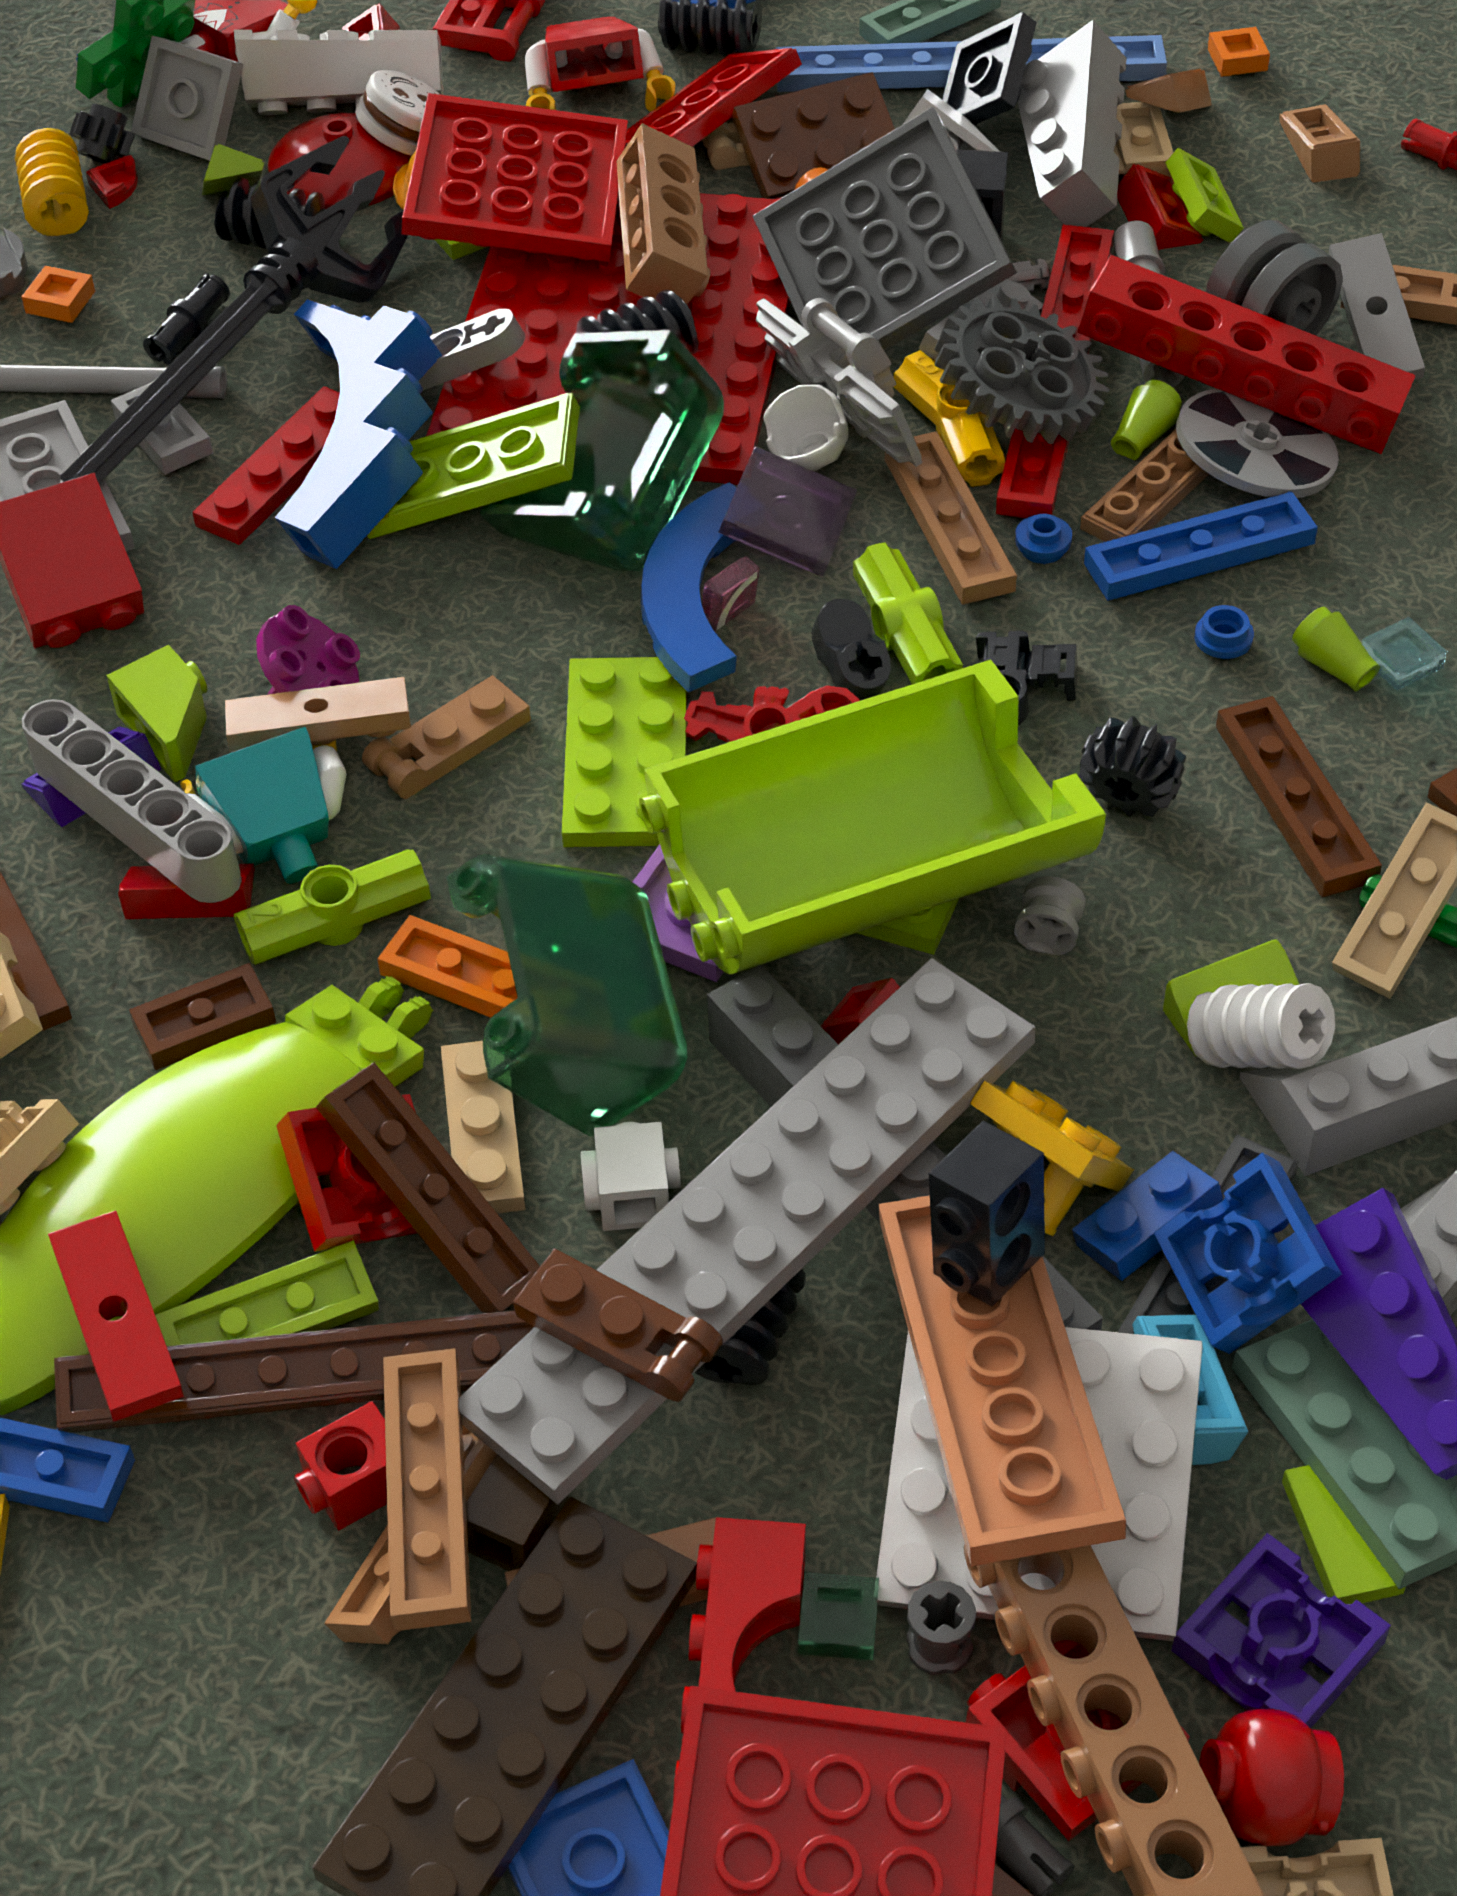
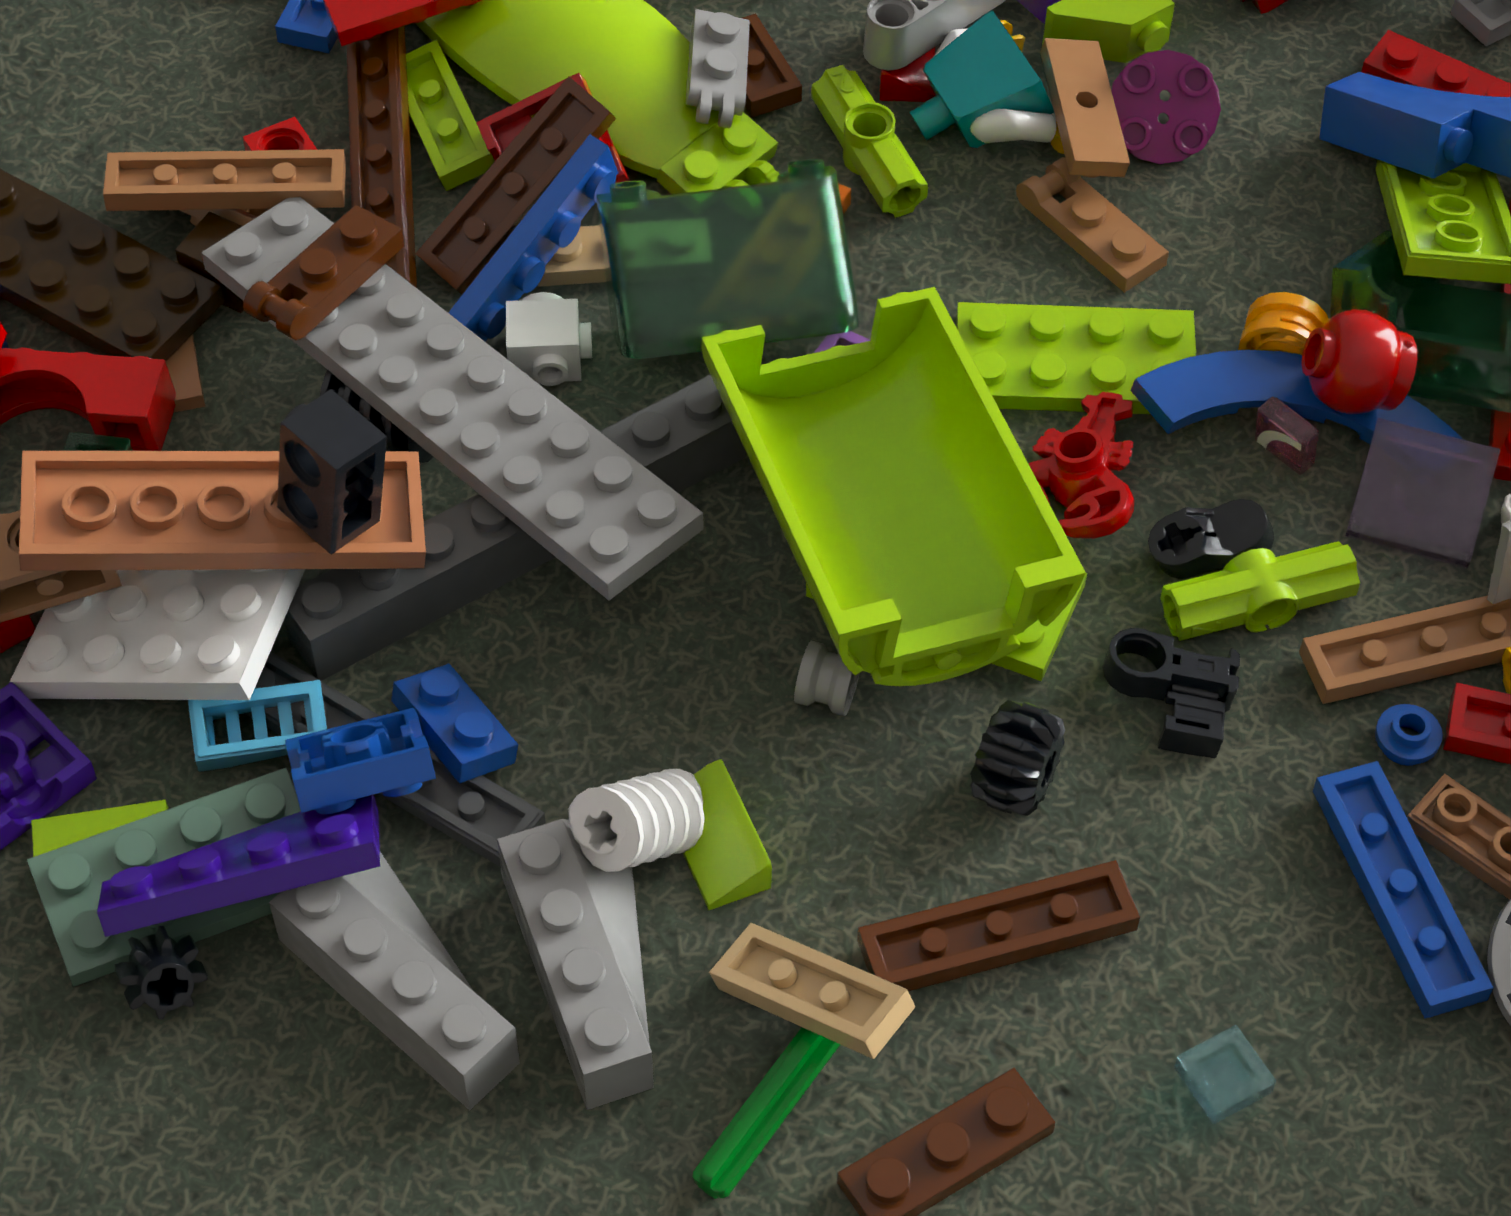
camera: 90 degrees right, 5 degrees up
(240, 1021) = (717, 66): none -> light grey hinge
(515, 1171) = (543, 230): none -> blue plate
(614, 587) = (1281, 323): none -> light orange wheel
(681, 511) = (1359, 362): none -> red piece
(858, 1006) = (722, 520): red plate -> none
(1075, 1153) = (527, 634): yellow plate -> none
(1224, 632) = (1262, 880): blue plate -> none
(1333, 646) = (1233, 996): lime cone -> none

